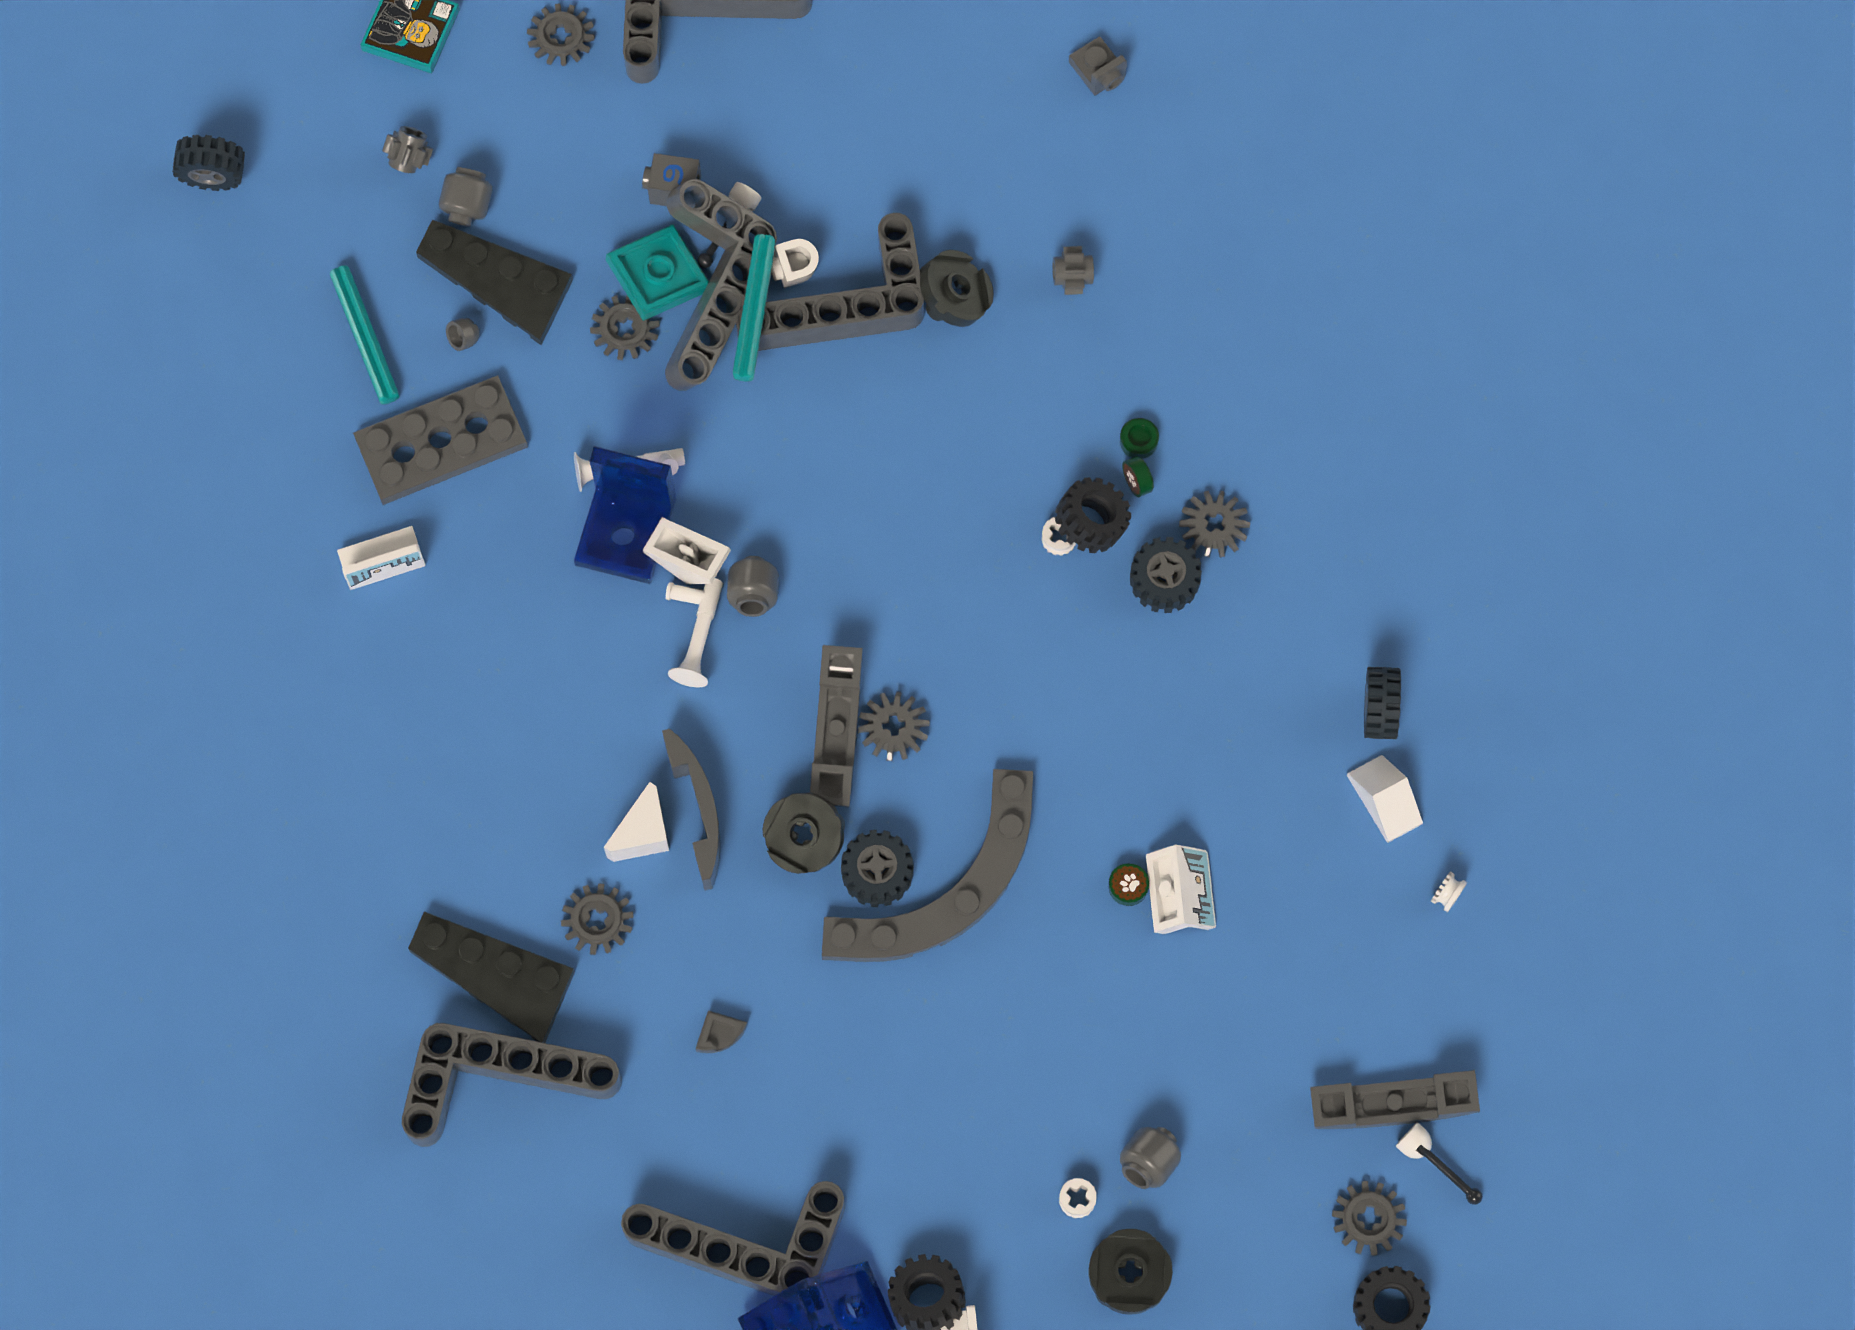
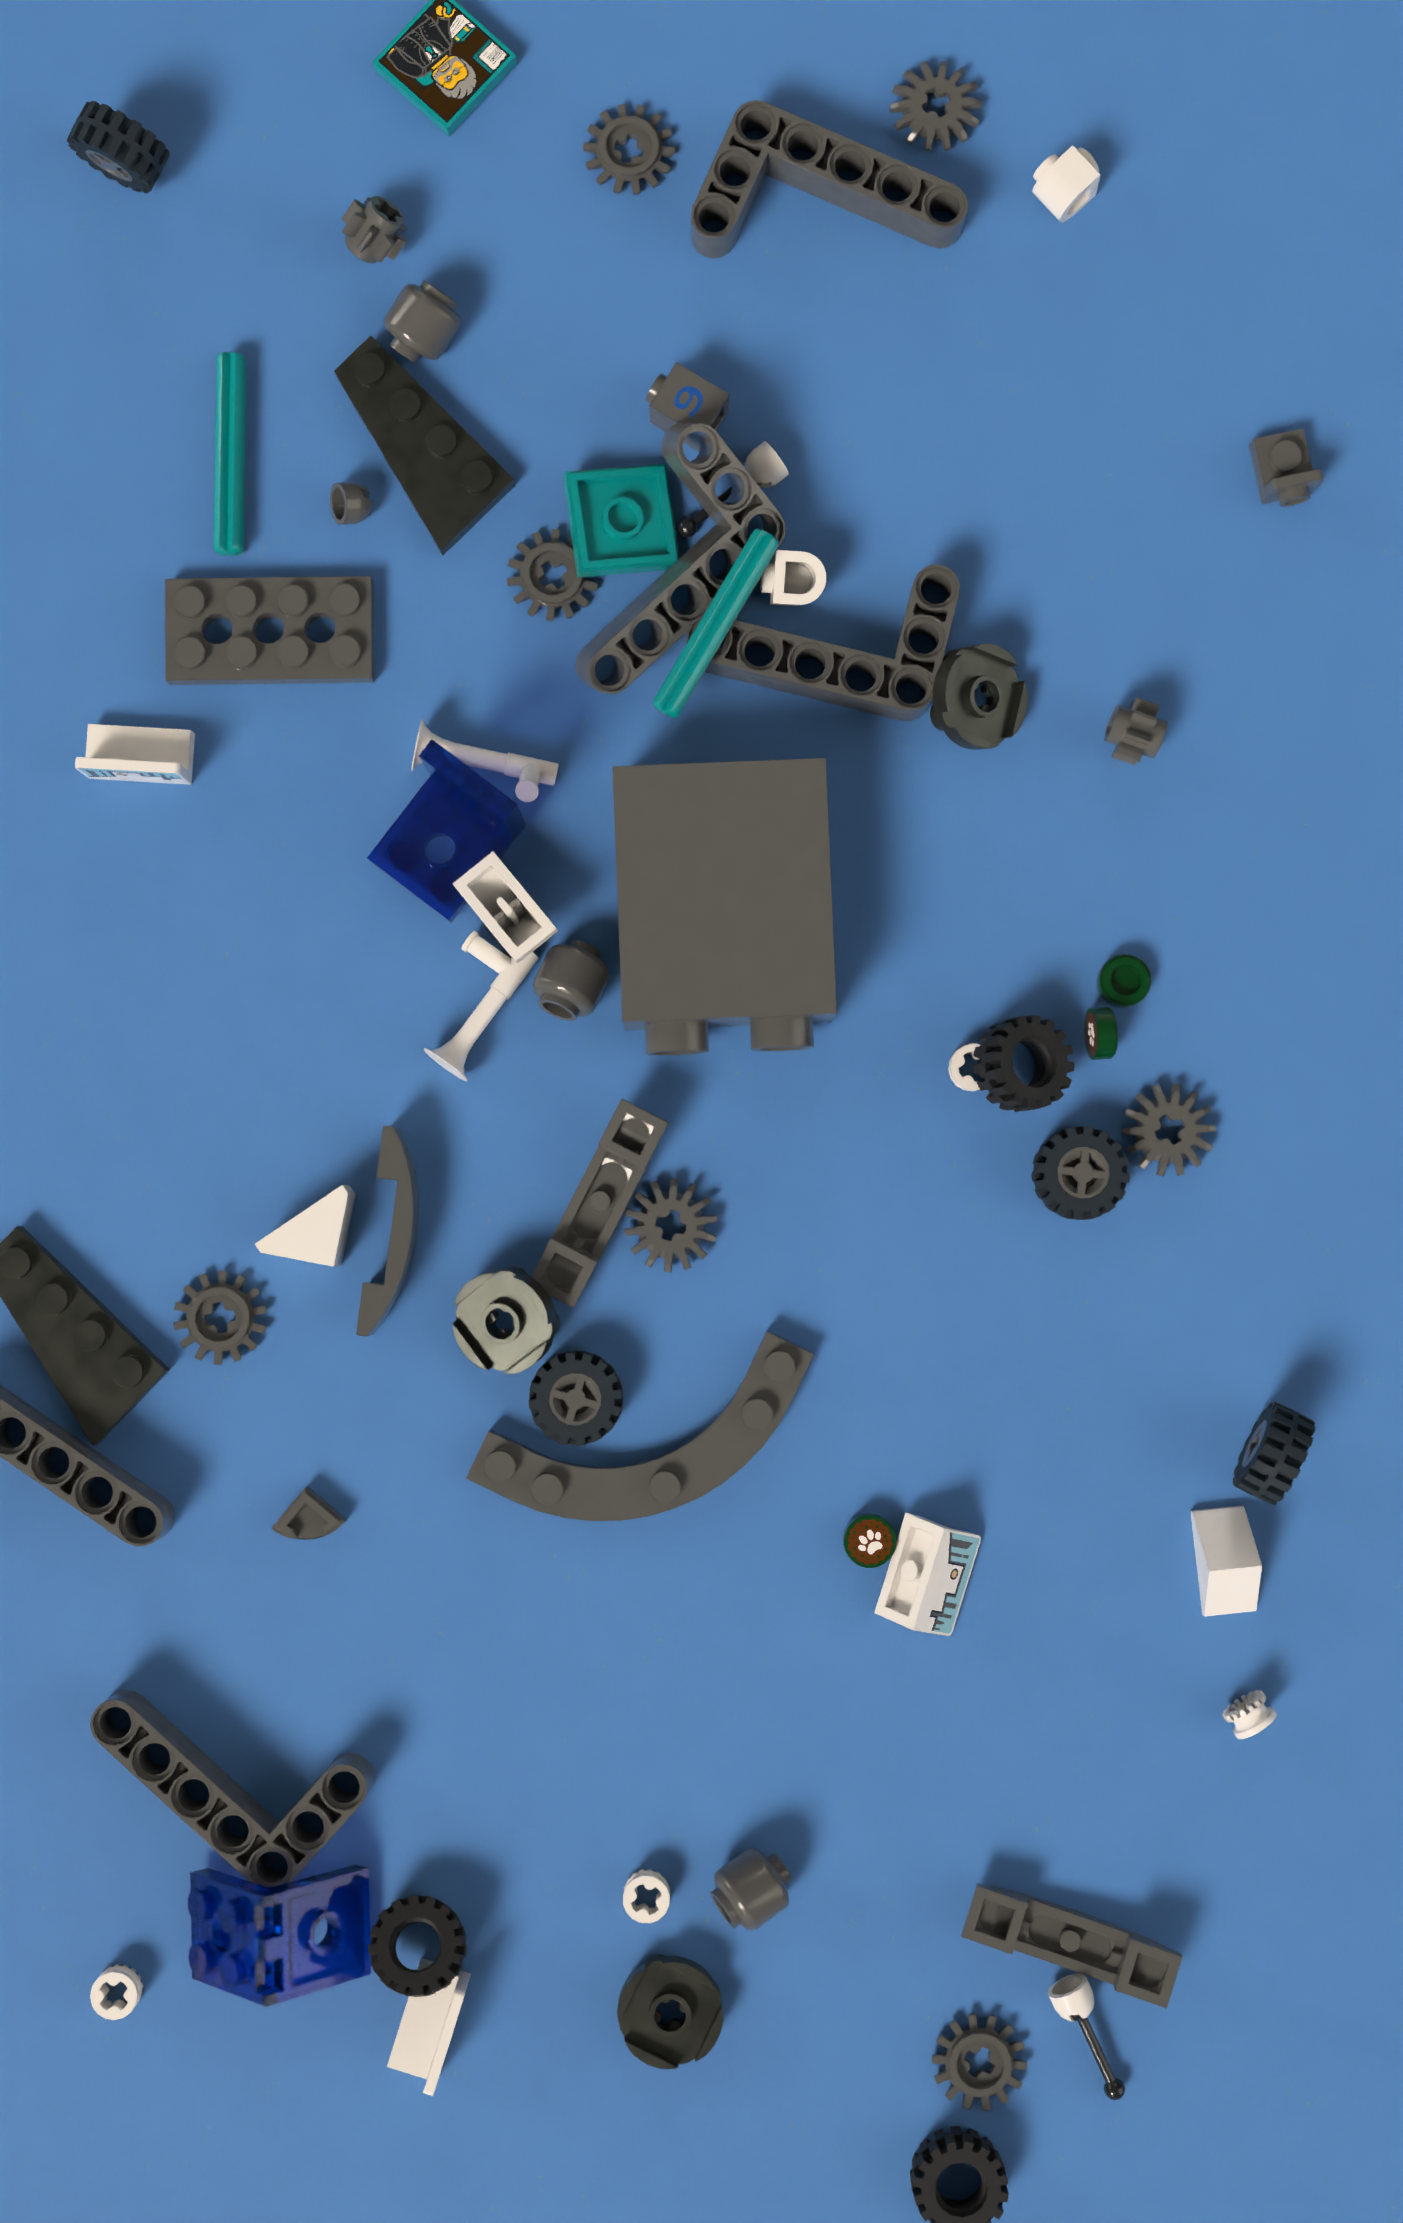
camera: 20 degrees right, 15 degrees up
(838, 488) = (724, 902): none -> dark grey brick

